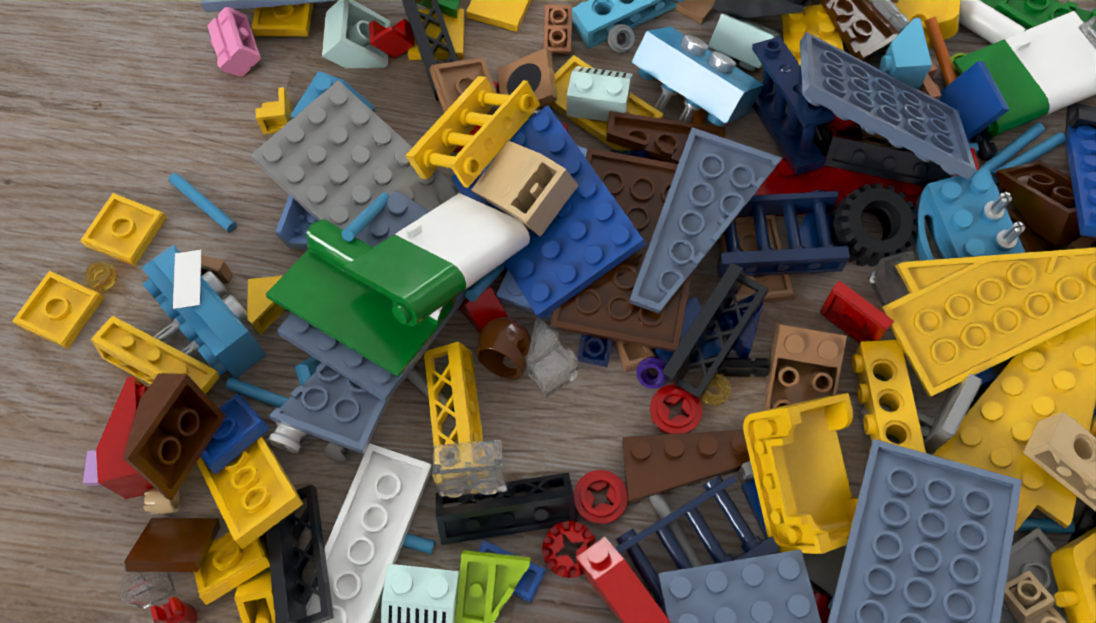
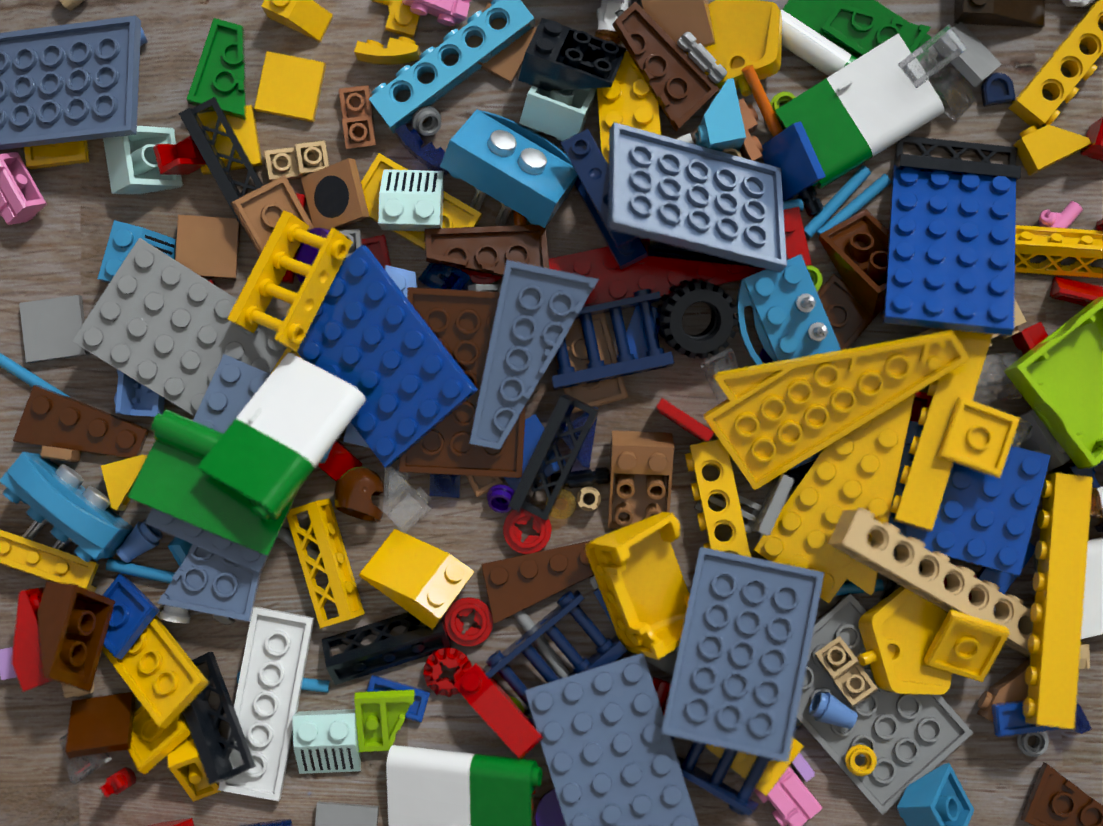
camera: 10 degrees left, 20 degrees up
(187, 279) = (50, 495): white sticker -> none
(231, 165) = (50, 328): none -> light grey tile
(234, 244) = (73, 425): none -> reddish brown wing
(268, 361) = (139, 541): none -> medium blue cone
(274, 114) = (78, 266): yellow panel -> none
(365, 217) = (203, 397): dark azure bar -> none
(403, 109) = (208, 245): none -> medium nougat tile
(469, 468) = (347, 619): clear bracket -> none
(499, 55) = (296, 161): none -> tan slope
(526, 186) = (350, 346): tan slope -> none
(554, 437) = (417, 576): none -> yellow slope
(610, 59) = (426, 155): none -> clear blue slope
(742, 394) = (580, 502): none -> tan hose

